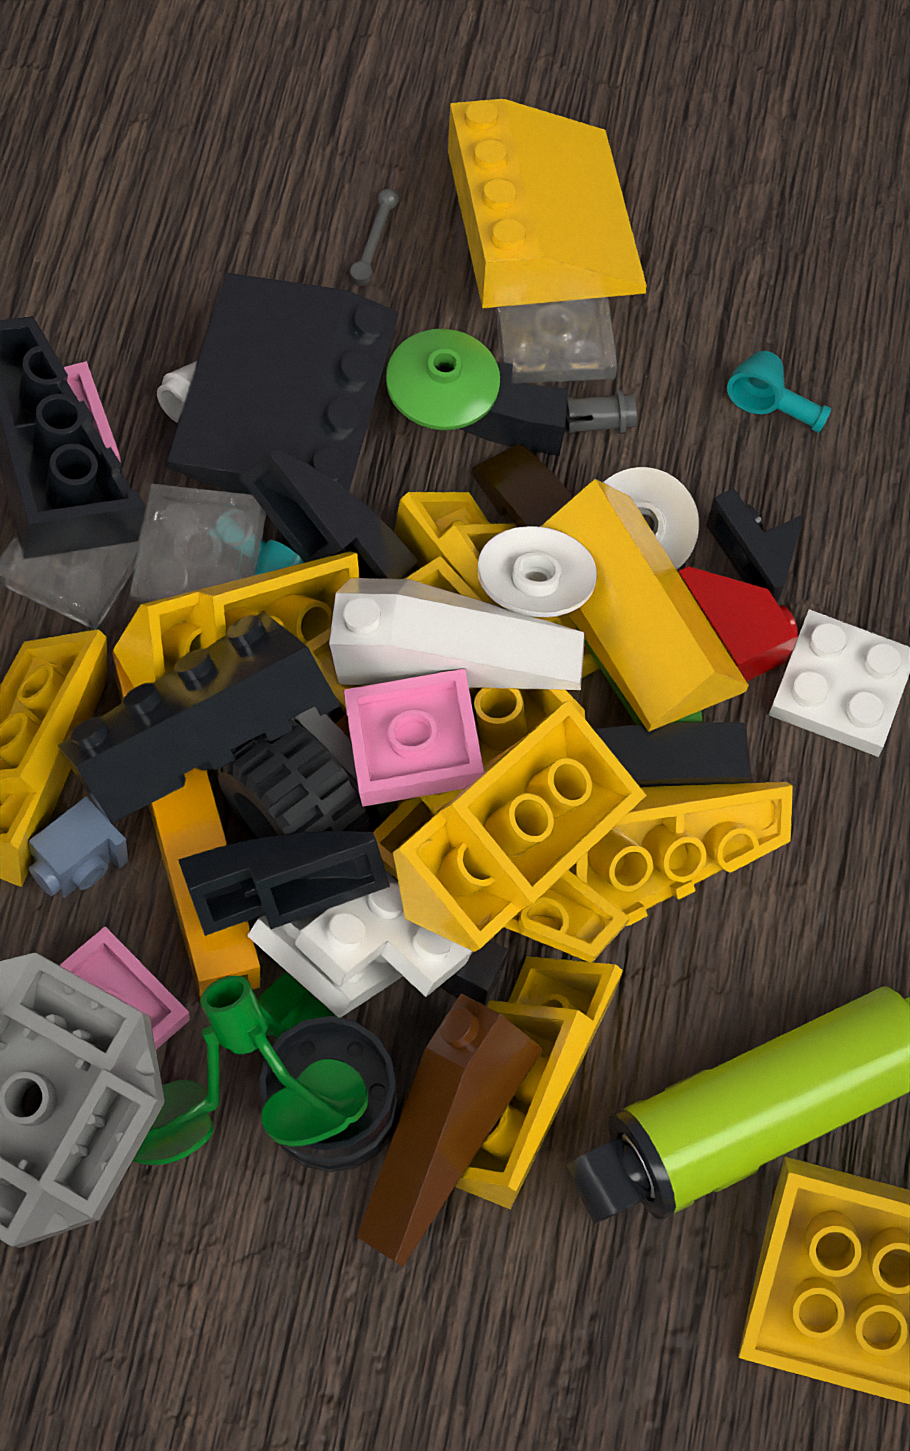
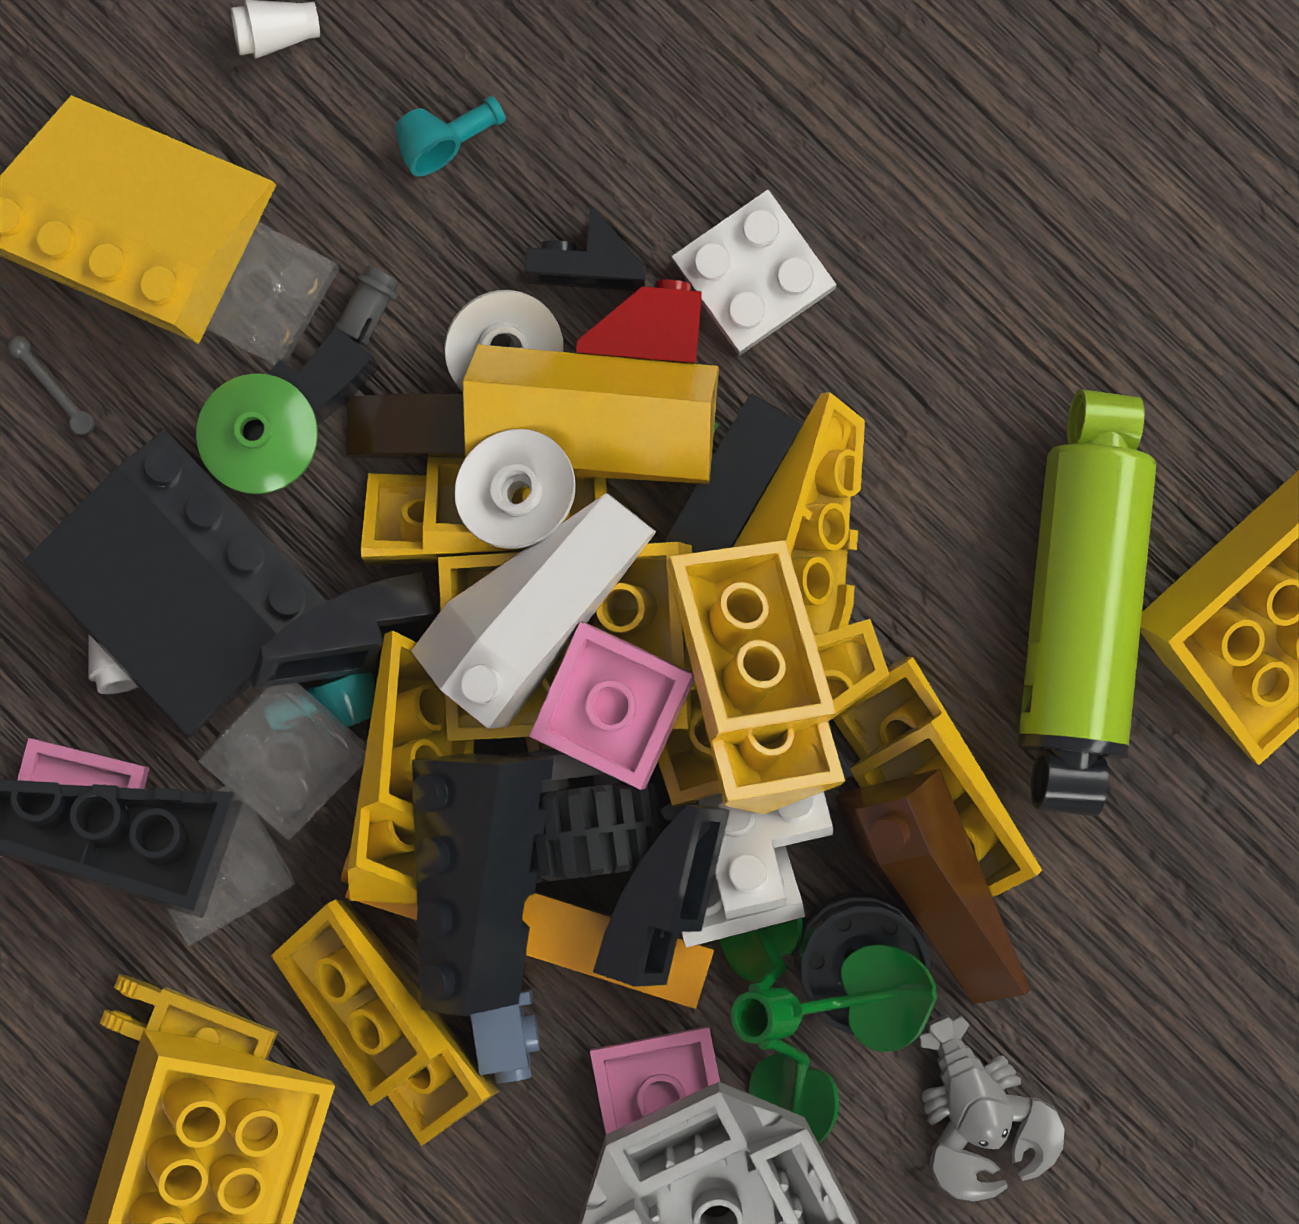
camera: 45 degrees left, 20 degrees up
(260, 1298) = (982, 1115): none -> light grey animal
(763, 229) = (272, 25): none -> white cone

